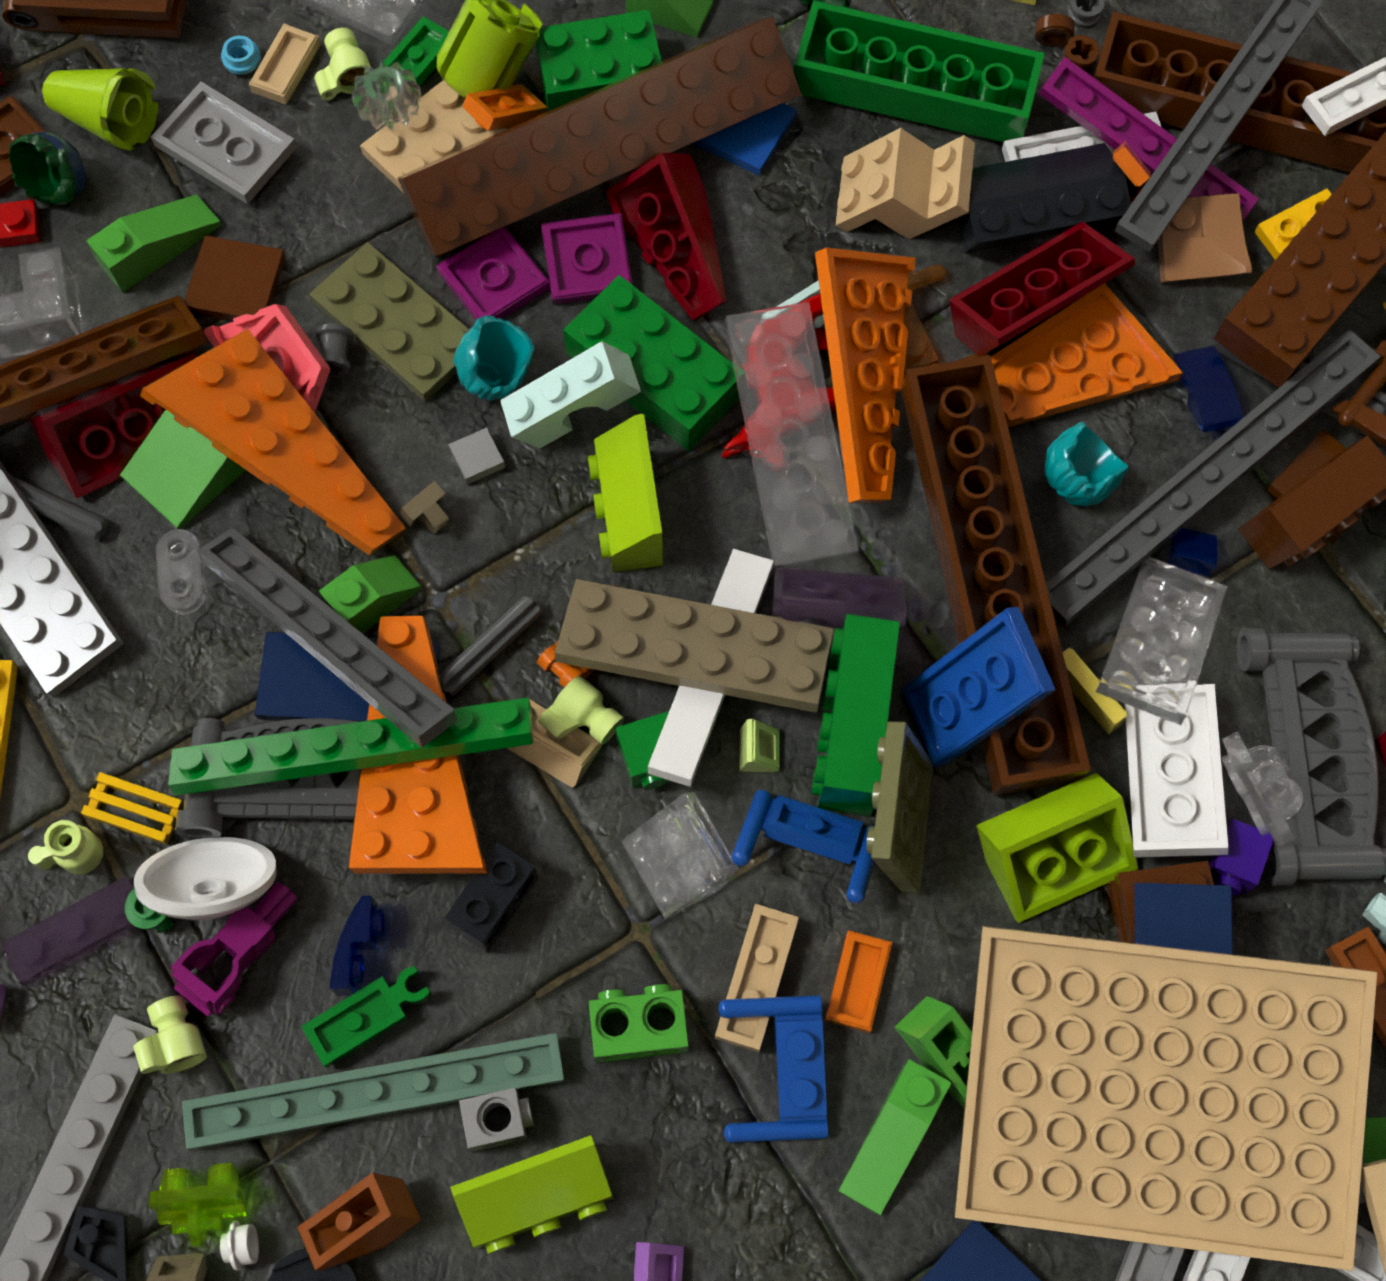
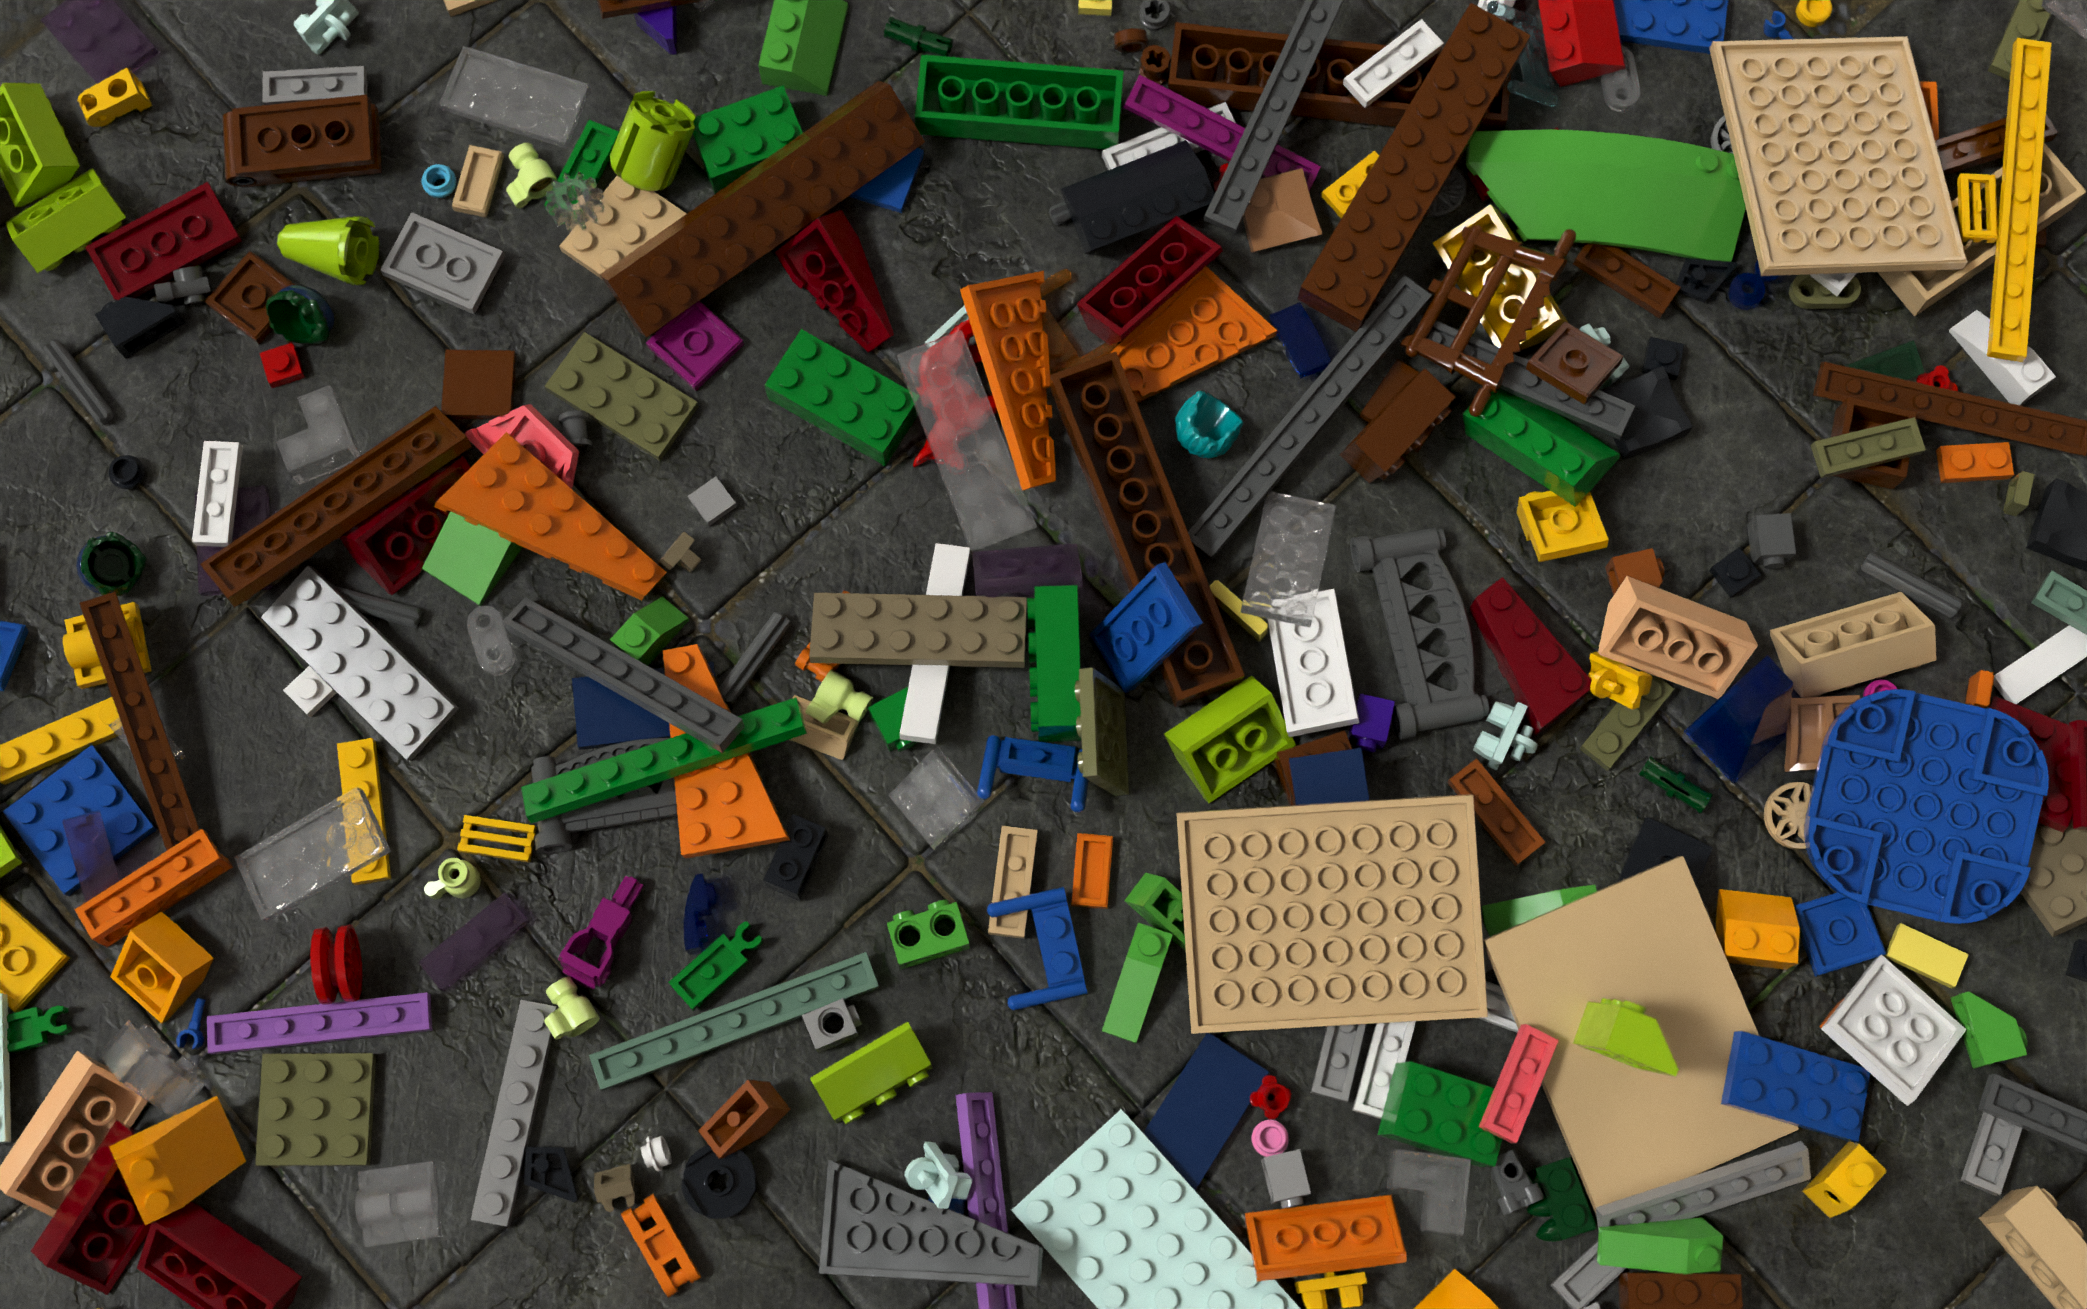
camera: 10 degrees left, 5 degrees up
(144, 917) = (529, 913): green plate -> none
(150, 238) = (402, 360): bright green slope -> none
(201, 1207) = (619, 1130): clear neon green hips -> none
(205, 877) = (570, 882): white dish -> none
(493, 358) = (711, 418): teal hair -> none
(504, 107) = (676, 193): orange plate -> none
(584, 256) = (769, 313): magenta tile -> none
(591, 379) = (796, 426): light aqua arch -> none
(627, 497) = (842, 516): lime slope -> none
(759, 747) = (984, 701): yellowish green slope -> none
(905, 184) = (1025, 205): tan bracket -> none
(1131, 164) = (1209, 159): orange tile -> none
(1194, 551) = (1306, 480): clear blue slope -> none
(1265, 786) = (1380, 661): clear plate -> none

